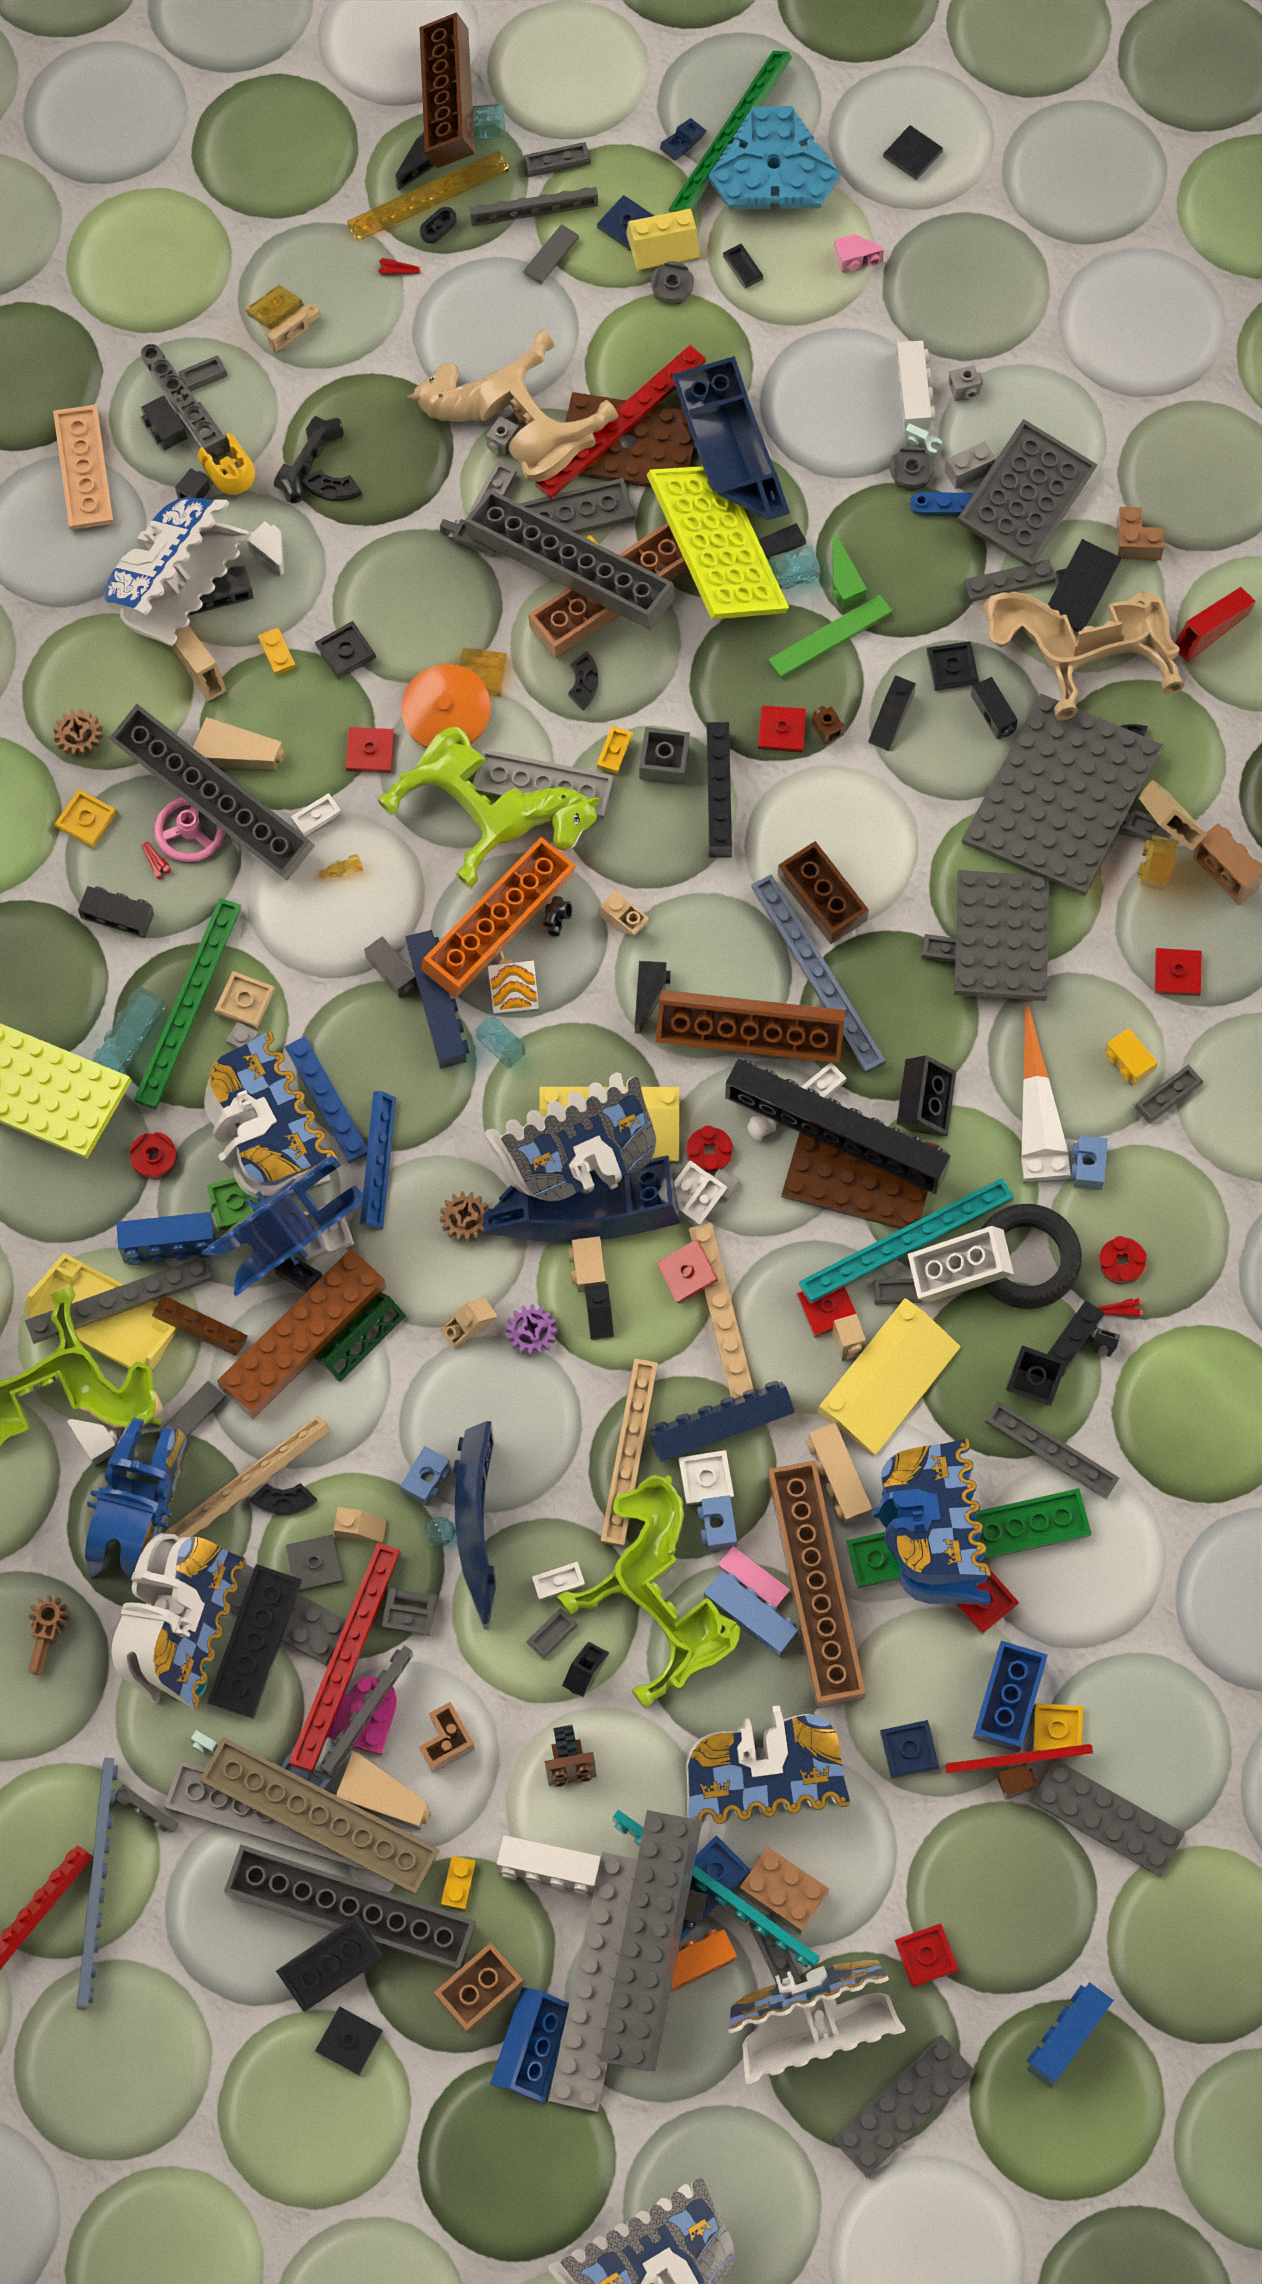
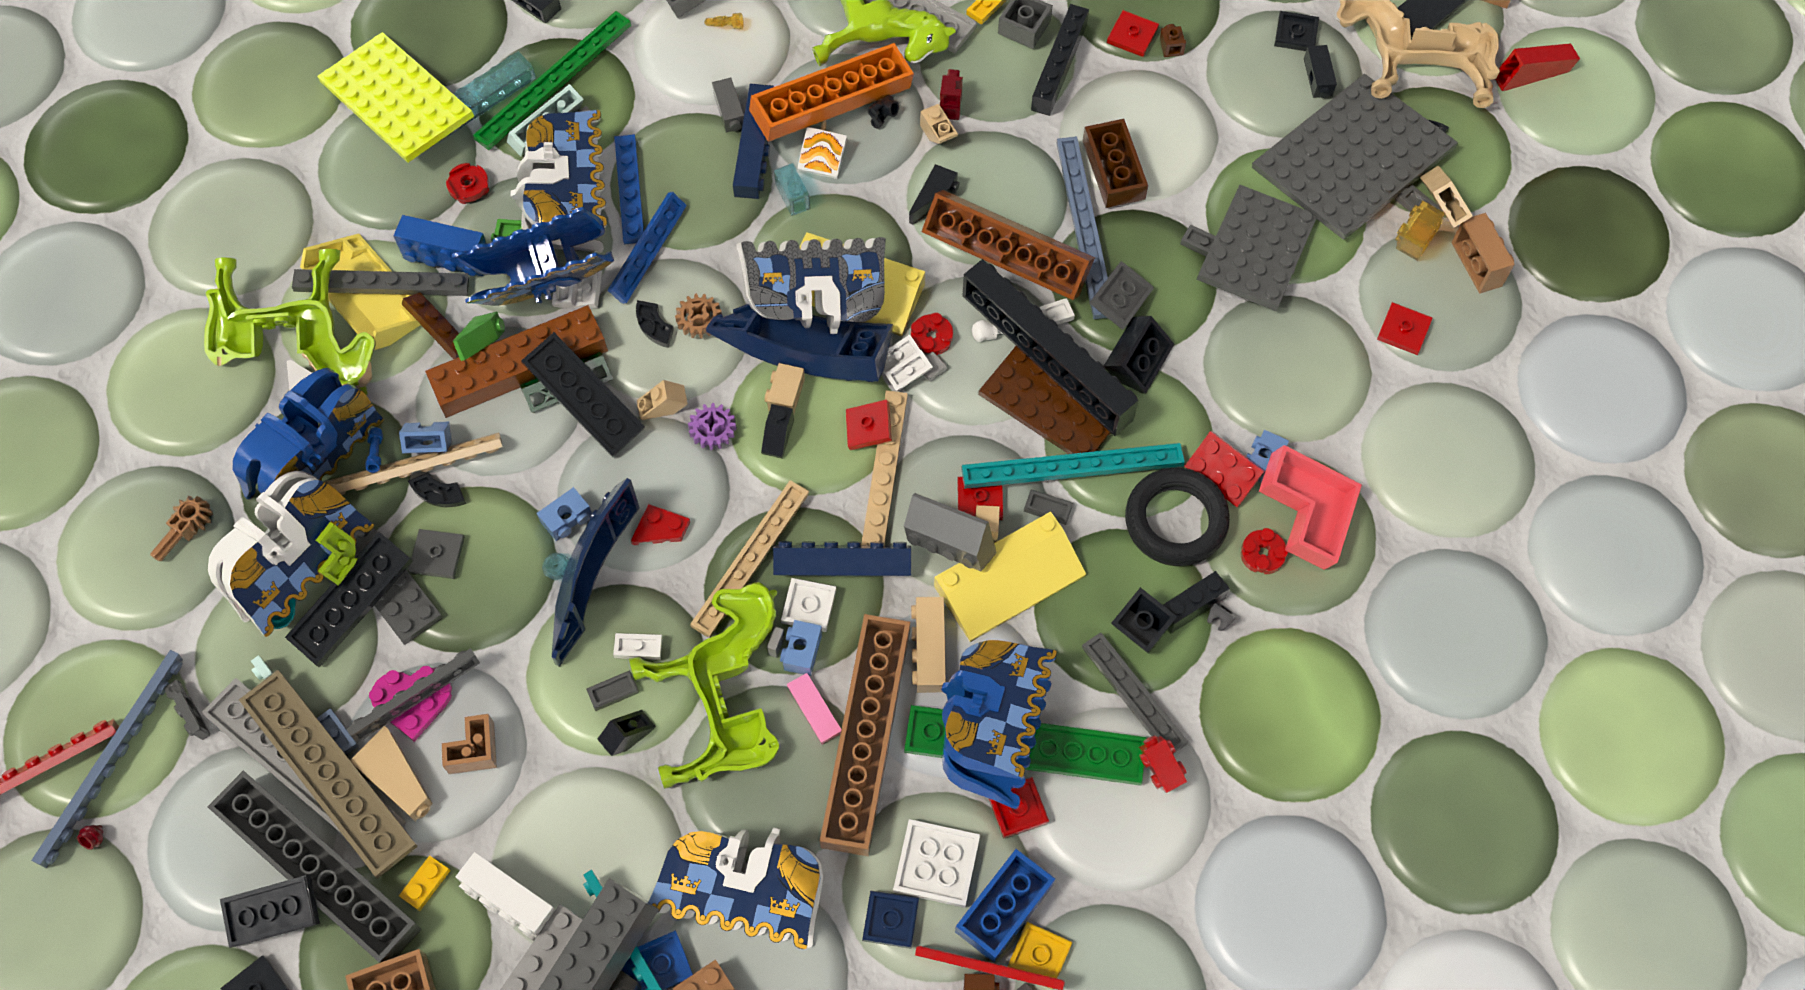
camera: 20 degrees right, 5 degrees down
(117, 1963) = (91, 836): none -> dark red plate
(196, 1409) = (399, 393): dark grey tile -> none
(205, 1055) = (564, 102): none -> light aqua brick
(210, 1494) = (373, 460): none -> blue bar
(235, 1606) = (342, 556): none -> lime plate
(236, 1448) = (414, 434): none -> medium blue brick
(244, 1000) = (601, 91): tan plate -> none
(254, 1320) = (478, 334): none -> bright green slope
(299, 1275) = (536, 312): black plate -> none
(345, 1658) = (417, 643): red plate -> none
(359, 1526) = (487, 535): tan slope -> none
(390, 1346) = (583, 394): none -> black plate
(408, 1618) = (493, 630): dark grey plate -> none
(419, 1242) = (652, 324): none -> black tile
(524, 1452) = (660, 526): none -> red wing
(569, 1761) = (572, 807): reddish brown plate -> none
(621, 873) = (951, 94): none -> dark red hips
(690, 1527) = (775, 642): none -> light grey tile
(751, 1614) = (797, 739): medium blue brick -> none
(817, 1357) = (949, 532): none -> slope
(886, 1040) = (1121, 295): none -> dark grey plate
(892, 712) = (1232, 47): black slope -> none
(930, 1681) = (936, 863): none -> white plate
(960, 1264) = (1112, 498): white brick -> none
(1043, 1142) = (1233, 410): white plate -> none
(1055, 1189) = (1226, 468): none -> plate
(1099, 1503) = (1159, 756): none -> red brick
(1124, 1308) = (1249, 593): red piece -> none
(1130, 1057) = (1335, 382): yellow brick -> none
(1163, 1192) = (1322, 500): none -> coral piece
(1169, 1094) = (1359, 426): dark grey tile -> none

